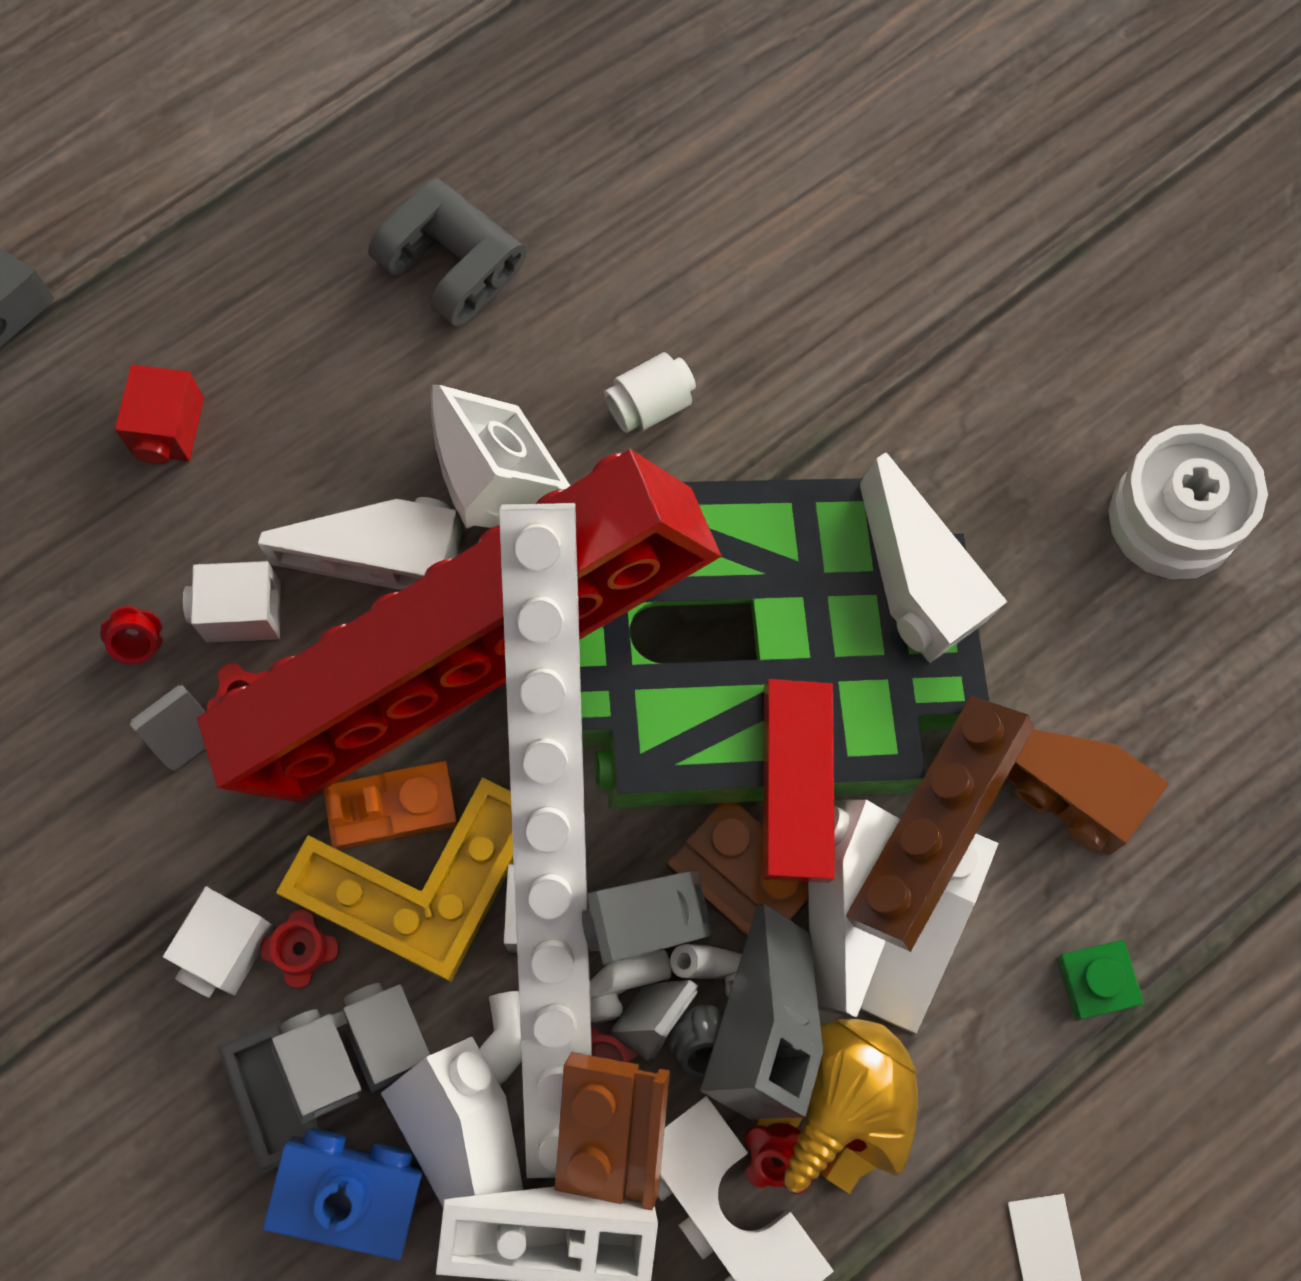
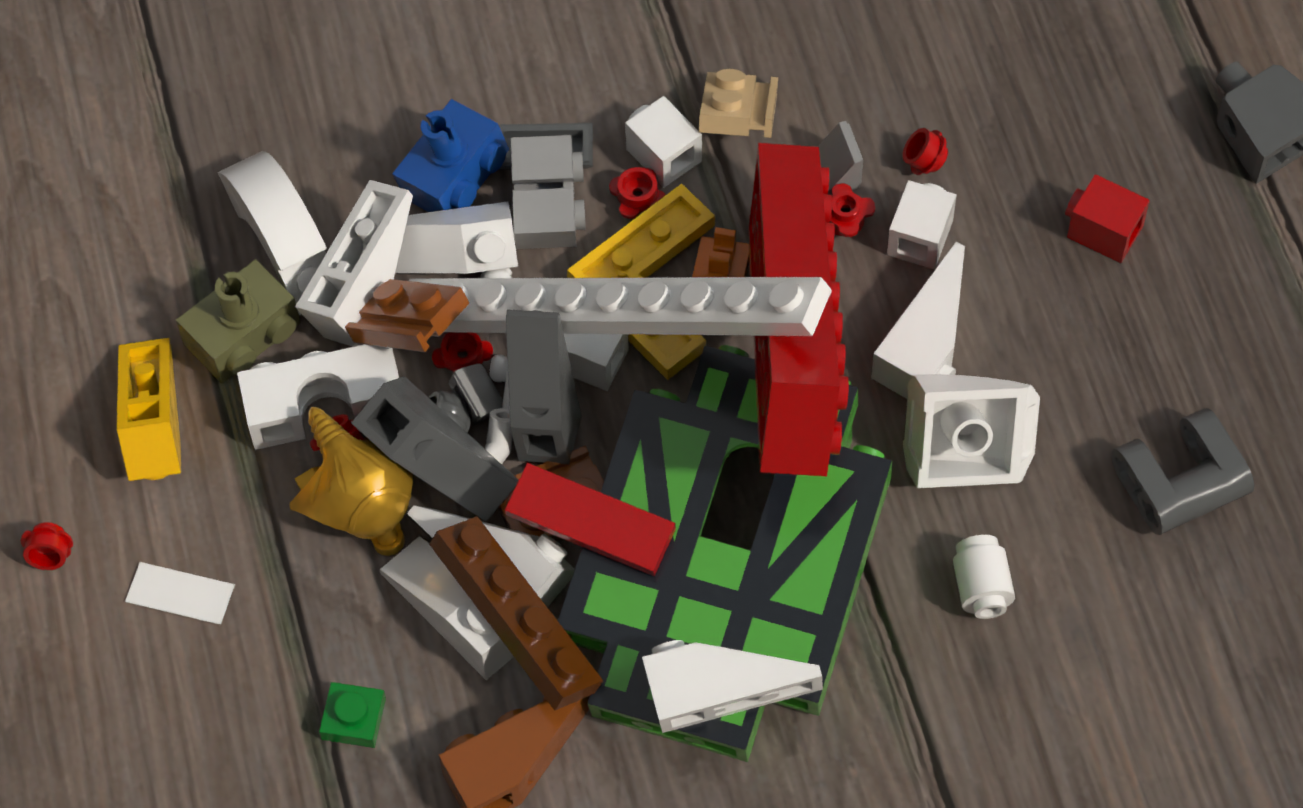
camera: 115 degrees right, 10 degrees down
(140, 867) = (737, 103): none -> tan plate

